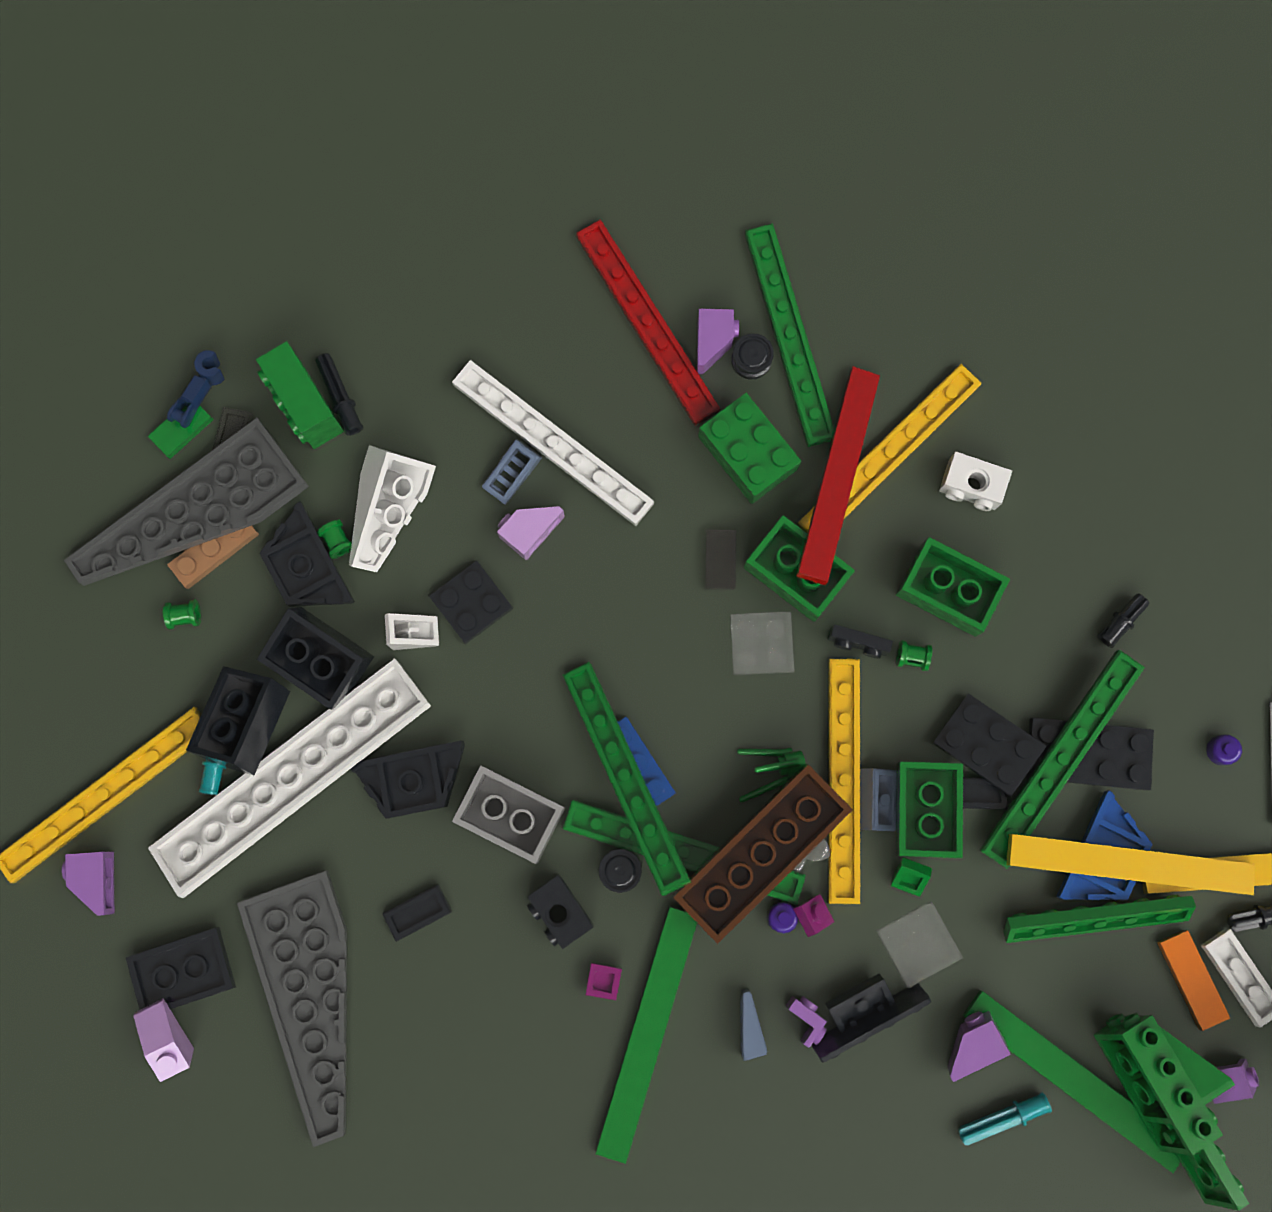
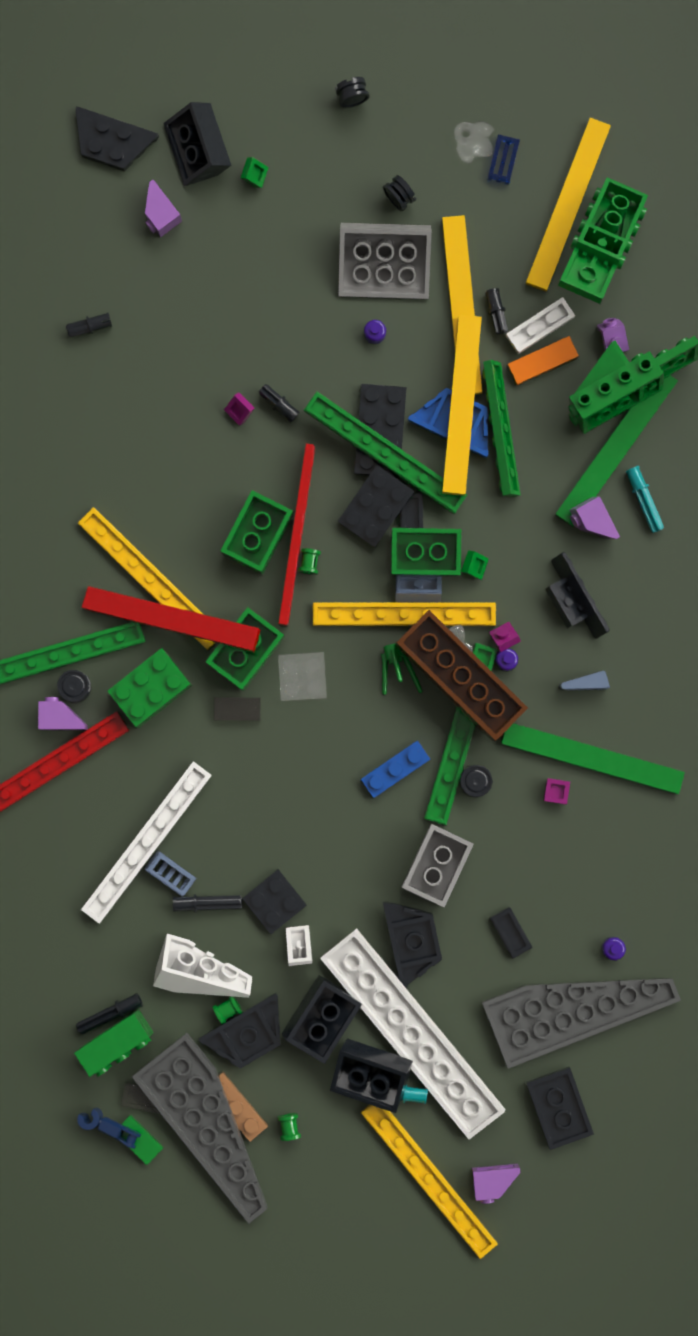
camera: 90 degrees left, 5 degrees up
(163, 1040) = (608, 1116): lavender slope -> none
(389, 1054) = (613, 948): none -> dark purple piece
(472, 516) = (206, 903): none -> black axle
(529, 528) = (216, 858): lavender slope -> none
(577, 920) = (495, 832): black brick -> none
(627, 779) = (407, 778): green tile -> none
(806, 1011) = (573, 642): medium lavender bracket -> none
(871, 645) = (298, 612): black plate -> none
(919, 944) = (523, 559): clear plate -> none
(952, 640) = (297, 535): none -> red tile
(991, 477) = (172, 500): white brick -> none
(1115, 568) = (239, 409): none -> magenta plate
(1217, 380) = (88, 325): none -> black axle

